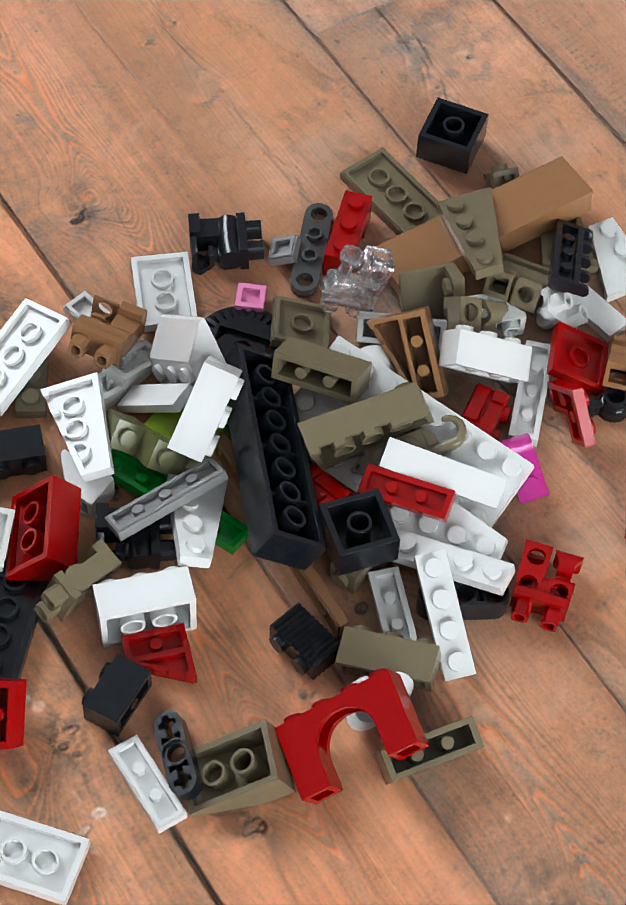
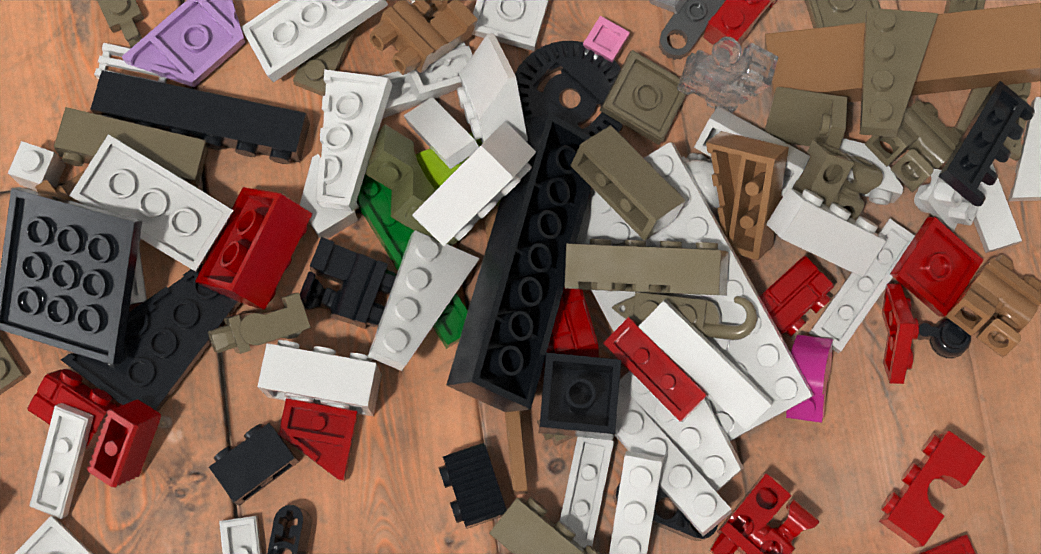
camera: 25 degrees right, 20 degrees up
(166, 498) = (392, 267): light grey tile -> none

